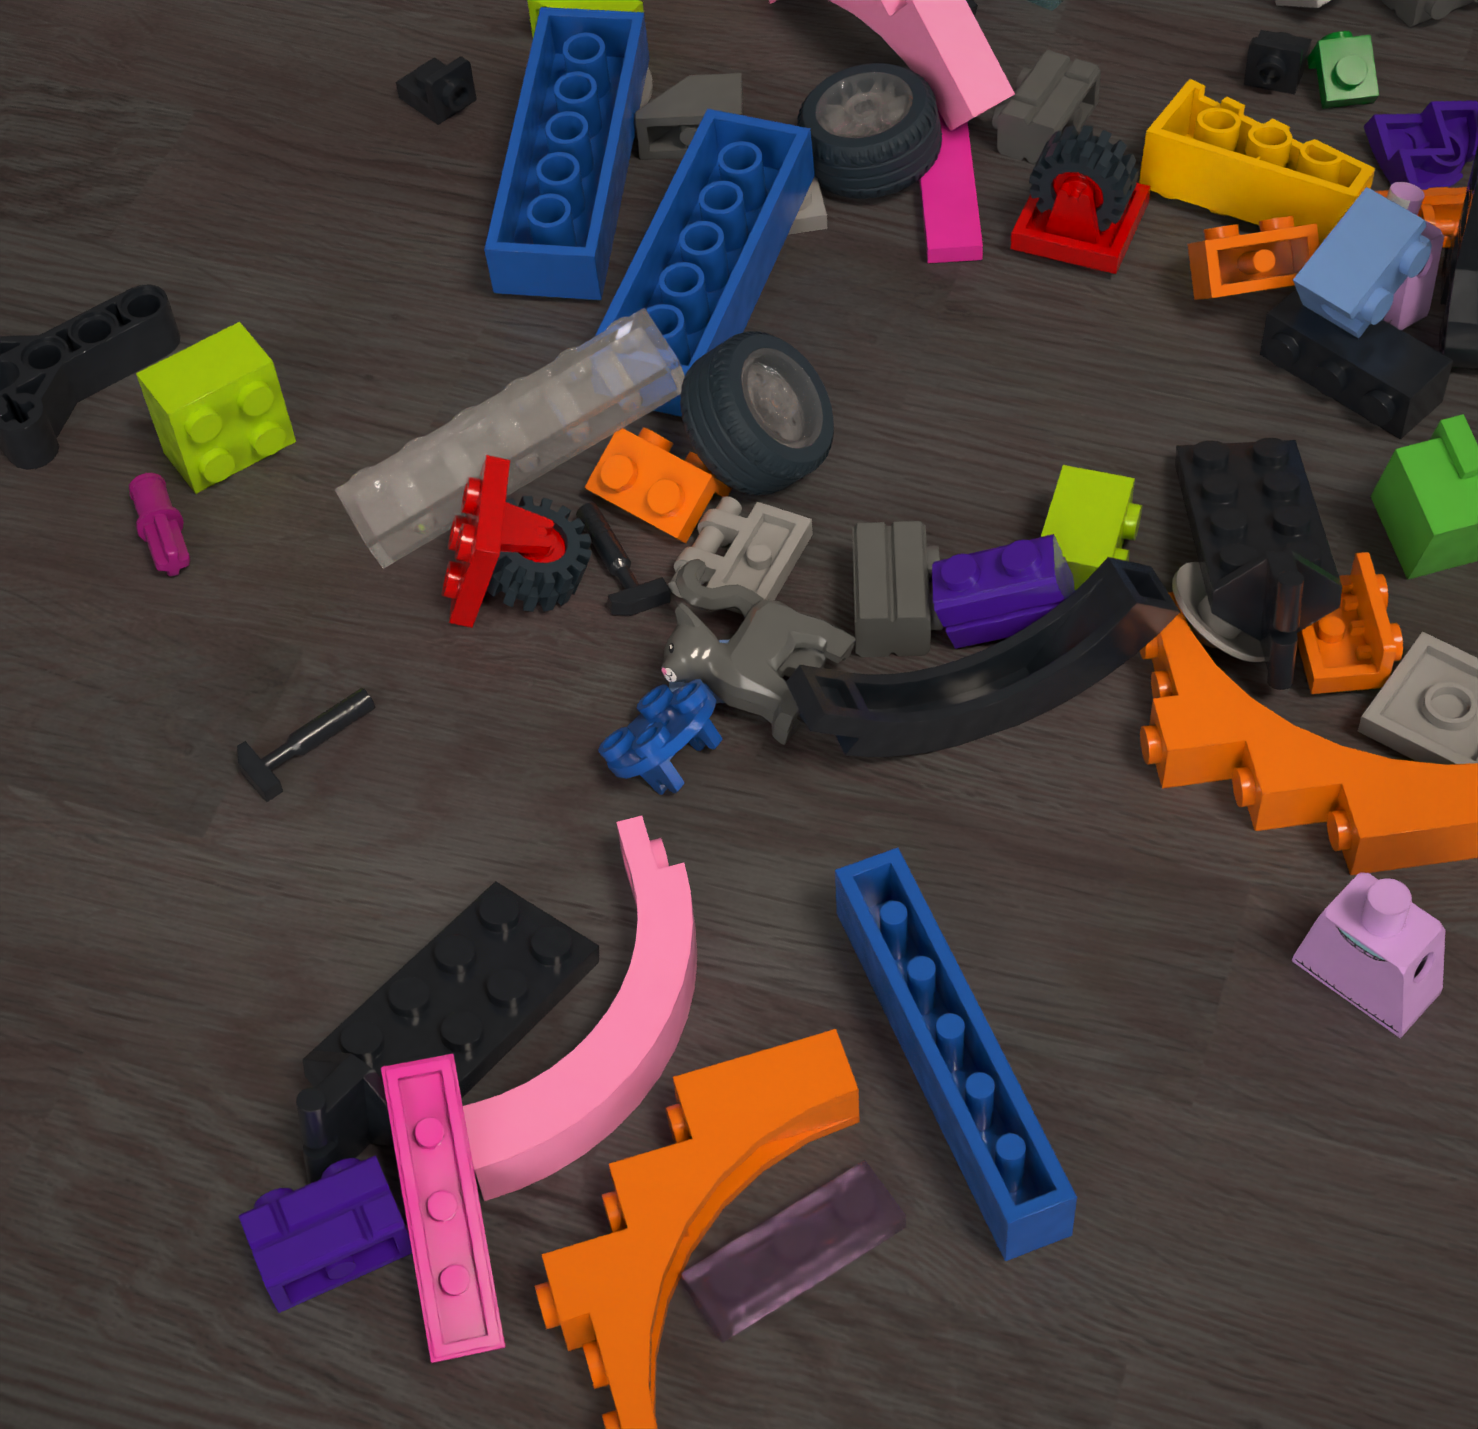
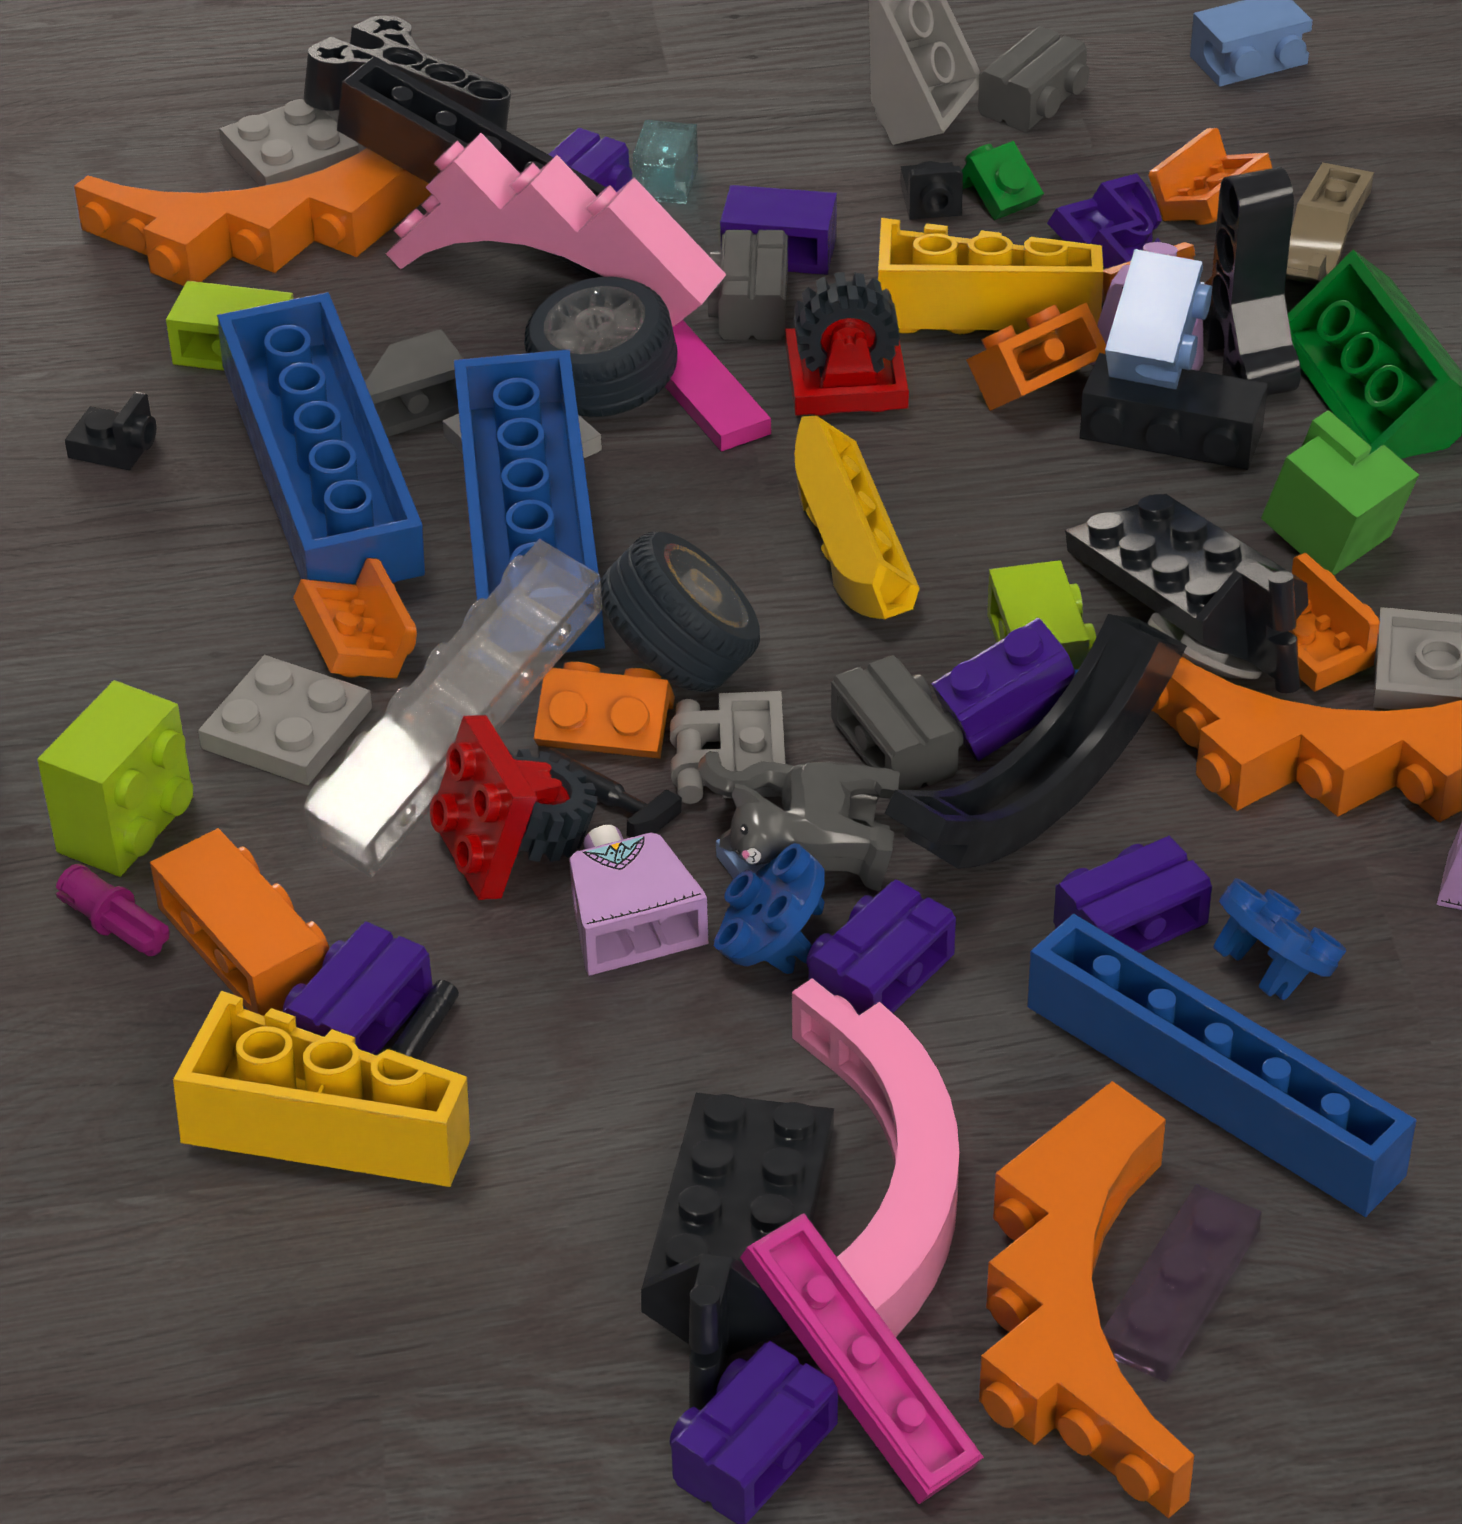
camera: 30 degrees left, 10 degrees down
(181, 761) = (318, 1099): none -> yellow wedge
(241, 576) = (238, 920): none -> orange brick
(283, 681) = (364, 988): none -> dark purple brick
(402, 394) = (285, 719): none -> light grey plate
(507, 328) = (358, 625): none -> orange bracket
(555, 674) = (633, 900): none -> lavender torso
(732, 812) = (884, 948): none -> dark purple brick
(983, 372) = (854, 525): none -> yellow brick
(988, 849) = (1139, 896): none -> dark purple brick
(1097, 938) = (1274, 923): none -> blue plate
(1129, 59) = (804, 216): none -> dark purple brick

